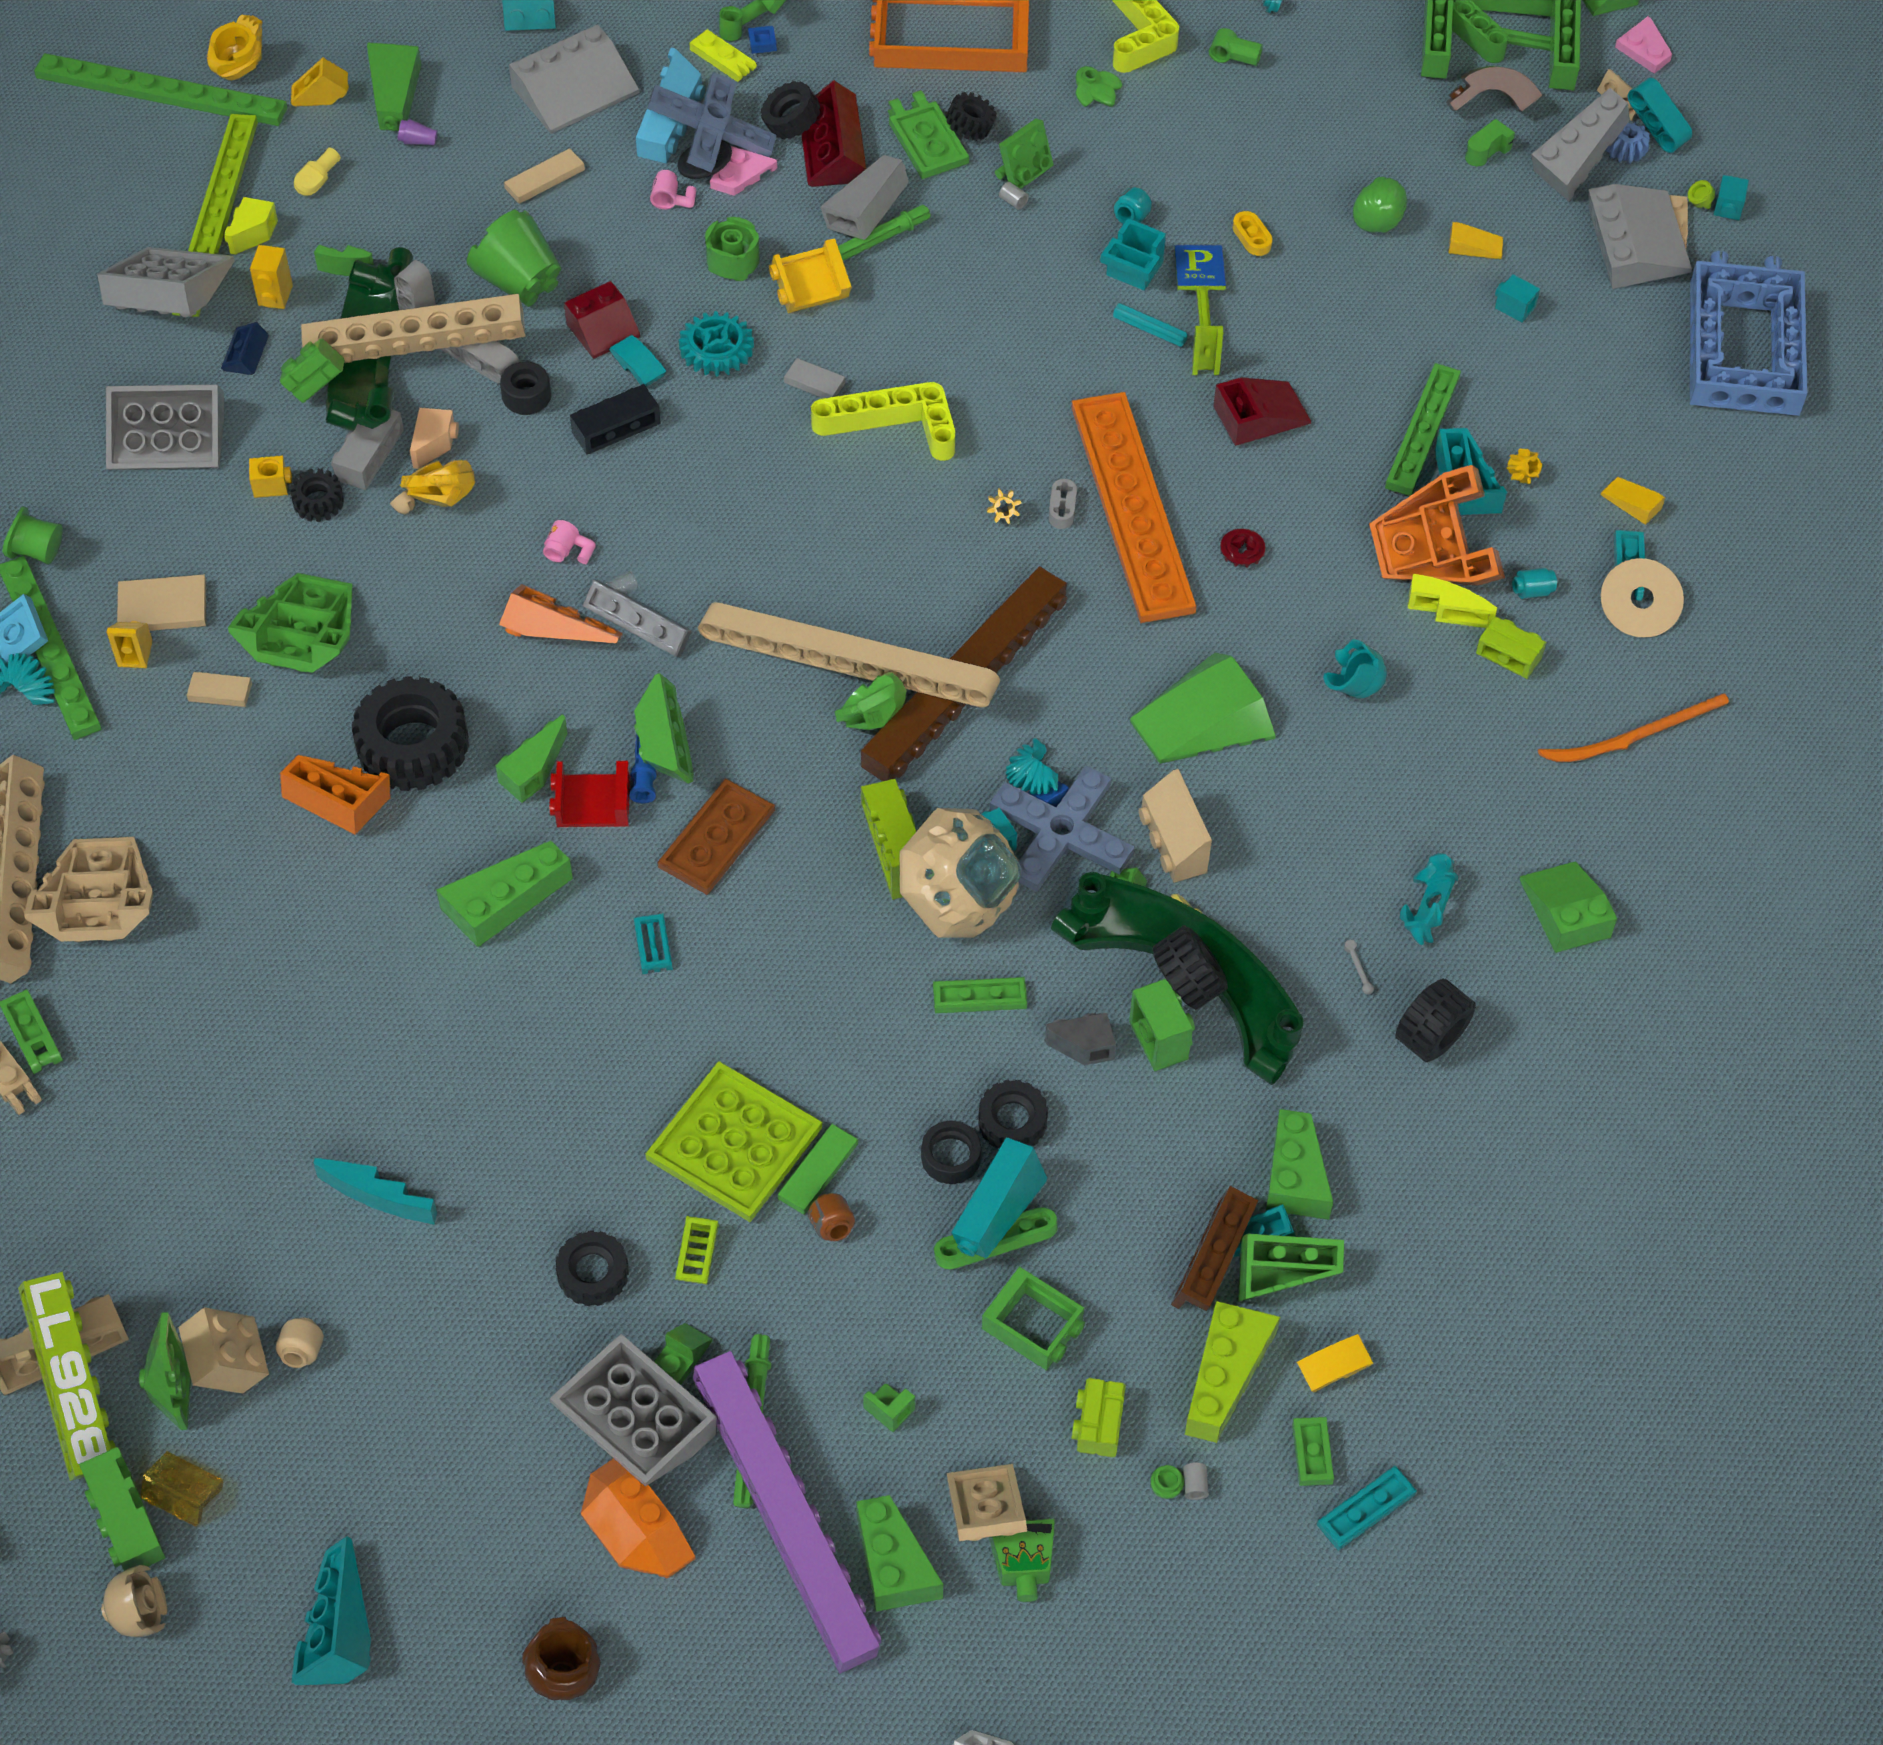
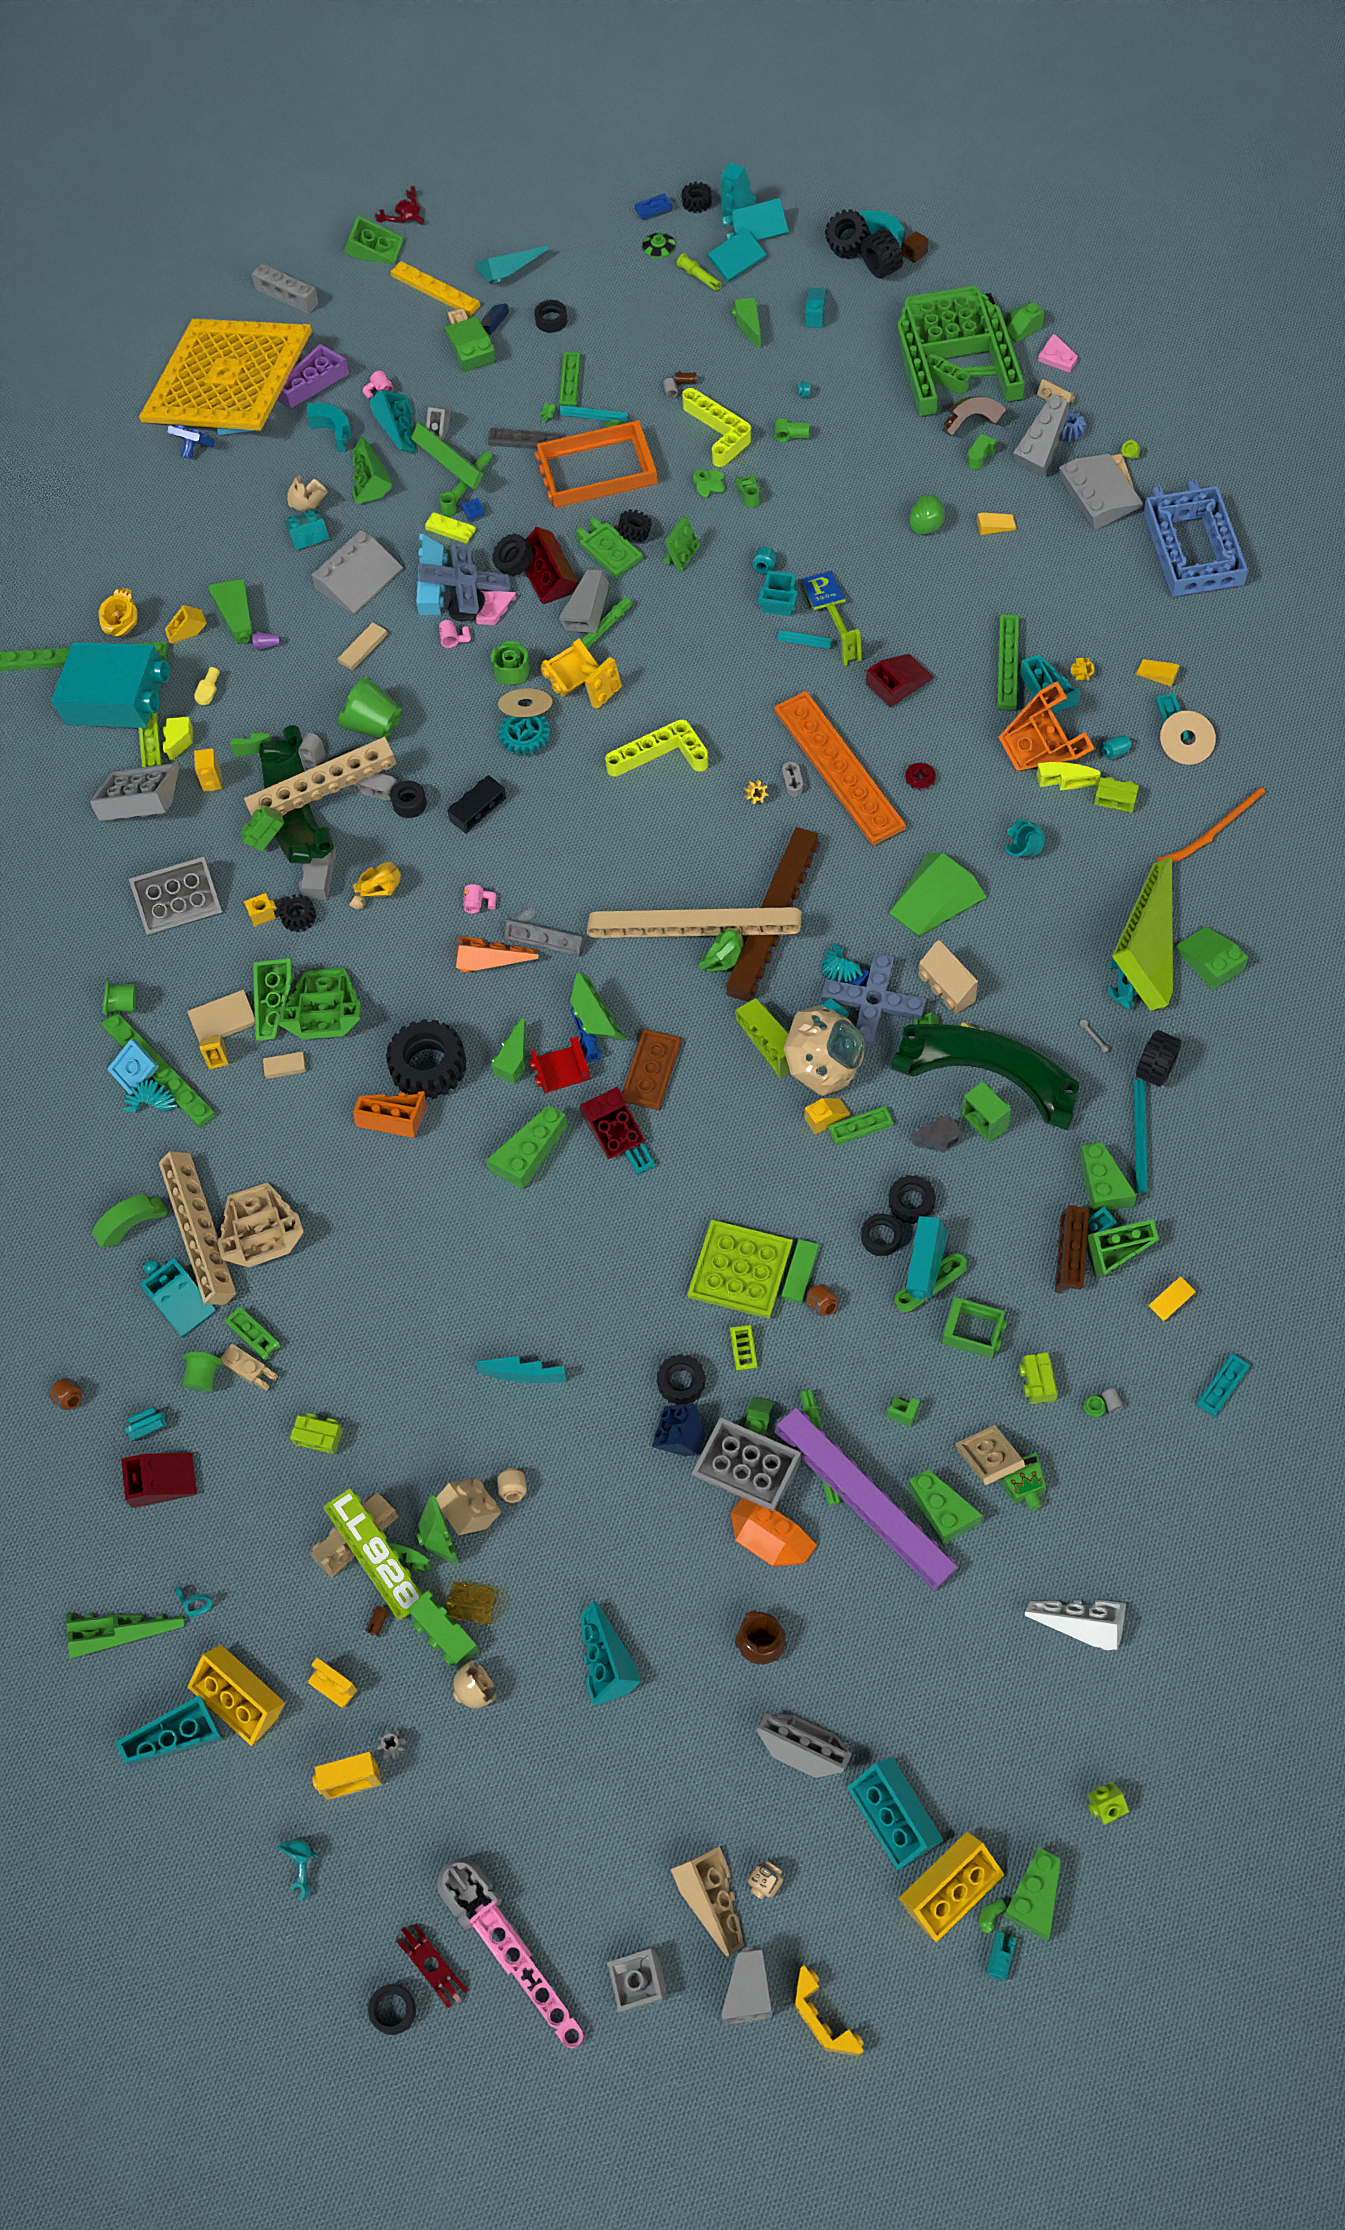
camera: 10 degrees left, 5 degrees up
(41, 1472) = (377, 1620): none -> reddish brown pin
(61, 1192) = (316, 1433): none -> lime brick
(120, 1399) = (414, 1560): none -> bright green slope
(185, 133) = (110, 685): none -> teal brick
(237, 584) = (271, 991): none -> bright green wedge
(245, 349) = (207, 825): dark blue slope -> none
(432, 435) = (359, 849): light nougat slope -> none
(562, 1337) = (680, 1430): none -> dark blue slope
(600, 319) = (441, 737): dark red slope -> none
(631, 890) = (611, 1123): none -> dark red slope
(638, 359) = (475, 757): teal slope -> none
(710, 304) = (509, 702): none -> tan sticker
(814, 379) = (598, 739): light grey tile -> none
(846, 304) = (601, 681): none -> yellow plate
(935, 962) = (825, 1113): none -> yellow slope
(1013, 195) = (682, 573): light grey hinge -> none
(1147, 112) = (749, 491): none -> bright green piece
(1190, 967) = (992, 1069): black tyre -> none
(1230, 1358) = (1105, 1317): lime wedge -> none
(1252, 233) = (851, 560): yellow plate -> none
(1312, 1451) = (1178, 1359): bright green plate -> none
(1373, 1124) = (1140, 1130): none -> teal axle
(1477, 856) = (1147, 939): none -> lime slope
(1516, 298) = (1036, 554): teal brick -> none
(1660, 115) = (1086, 402): teal beam -> none
(1731, 197) = (1150, 446): teal brick -> none

